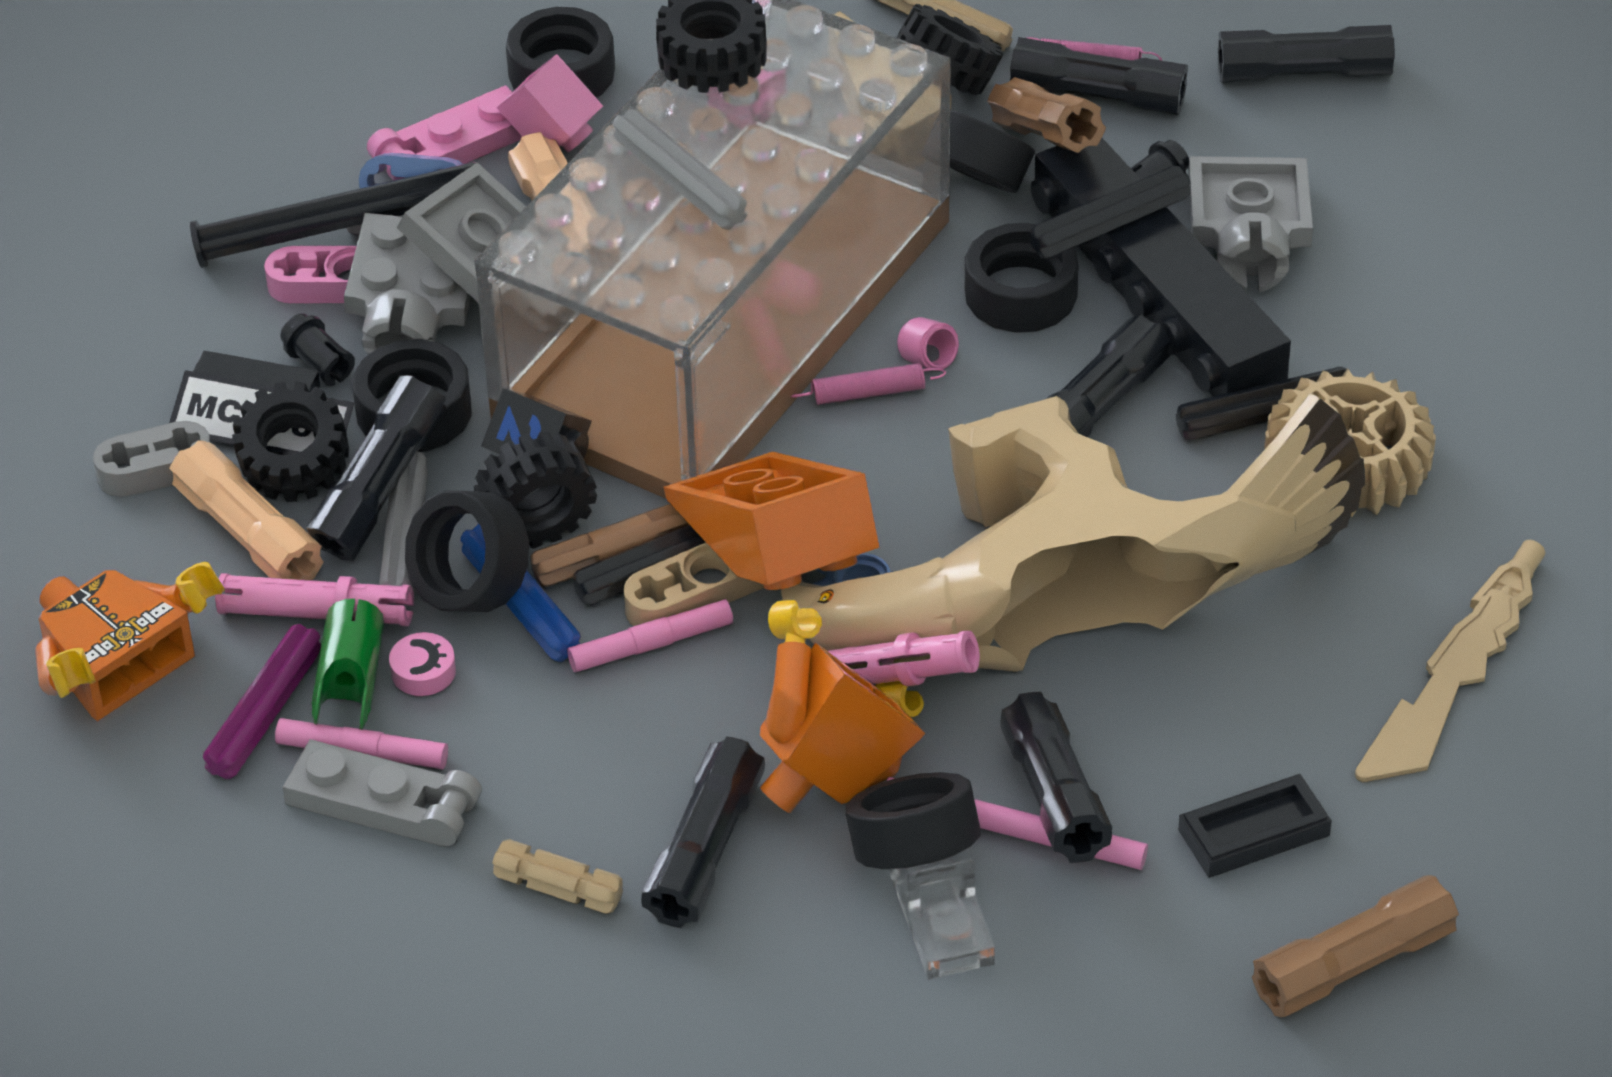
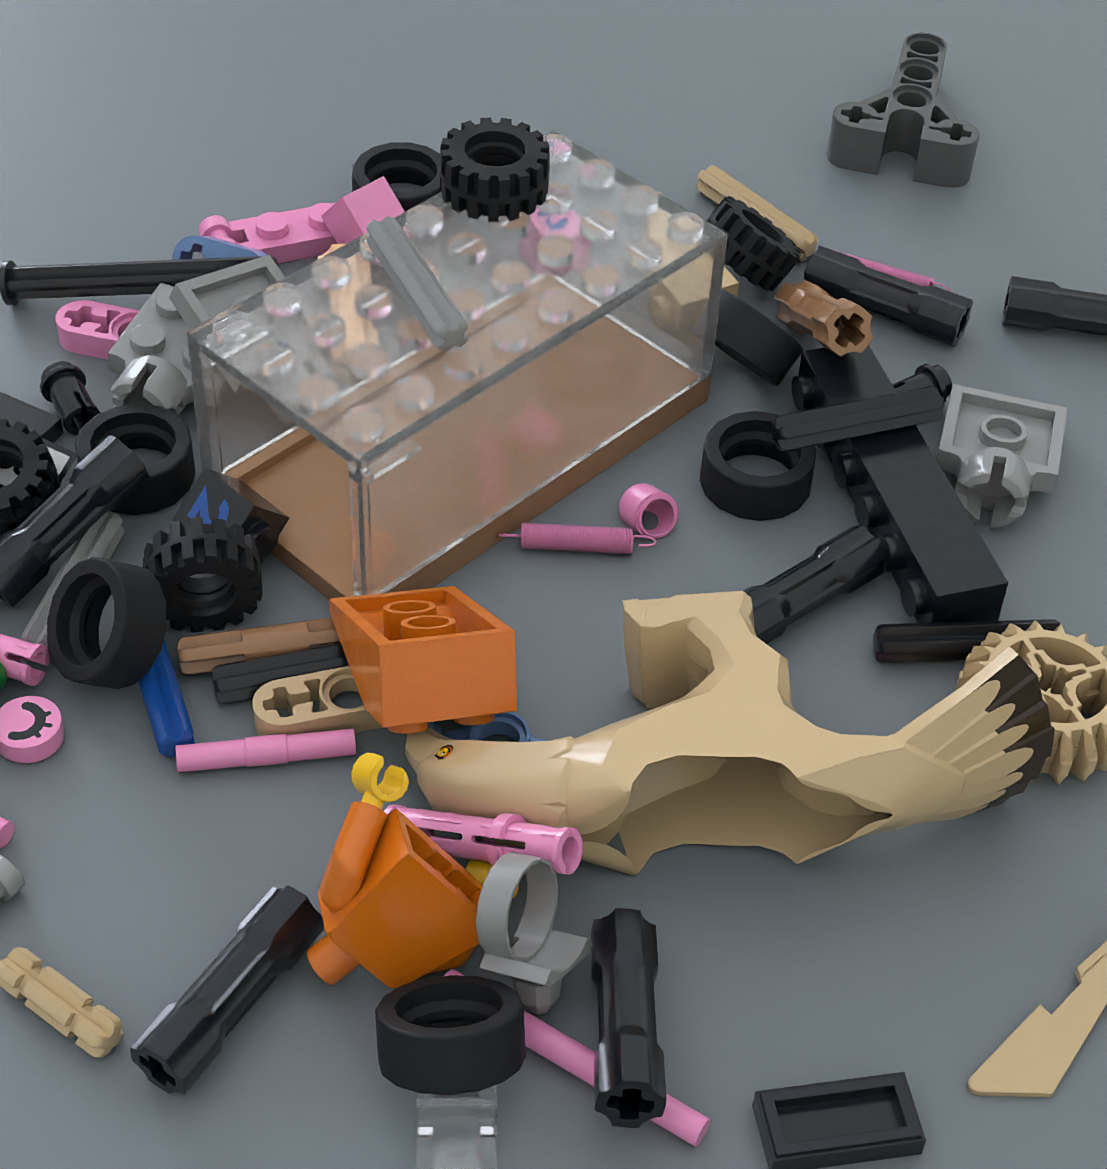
camera: 10 degrees right, 0 degrees up
(941, 724) = (539, 952): none -> light grey piece

